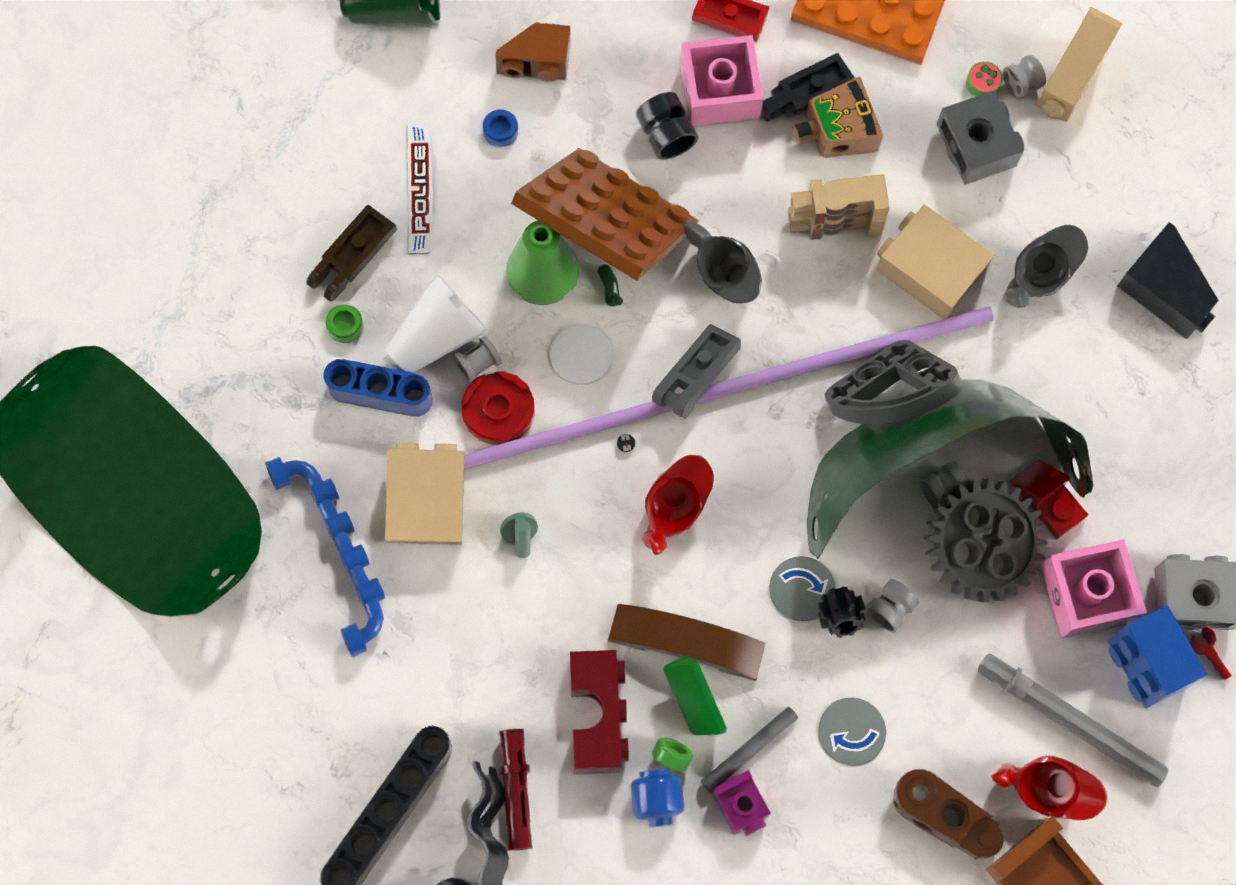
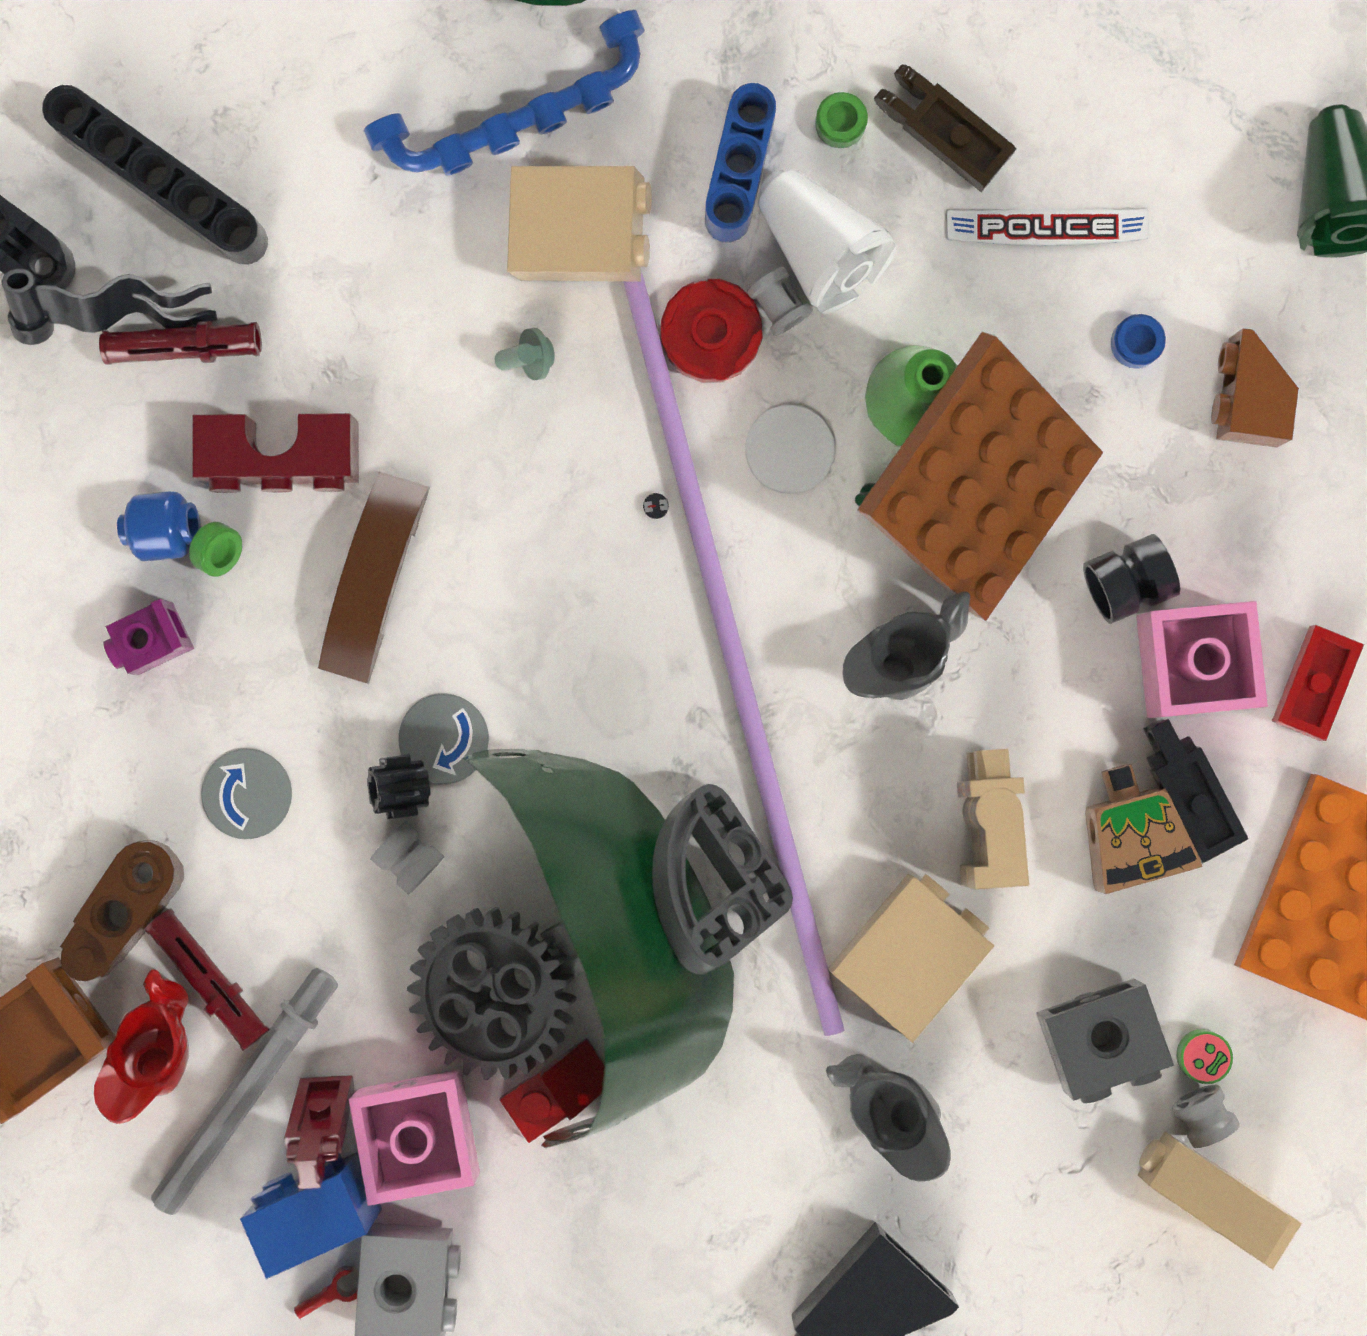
camera: 90 degrees right, 15 degrees up
(676, 500) = (555, 565): red hair -> none
(694, 697) = (289, 581): green slope -> none
(696, 370) = (752, 605): dark grey plate -> none
(749, 749) = (224, 653): flat silver bar -> none
(1005, 739) = (207, 980): none -> dark red pin
(1093, 652) = (317, 1126): none -> dark red hinge

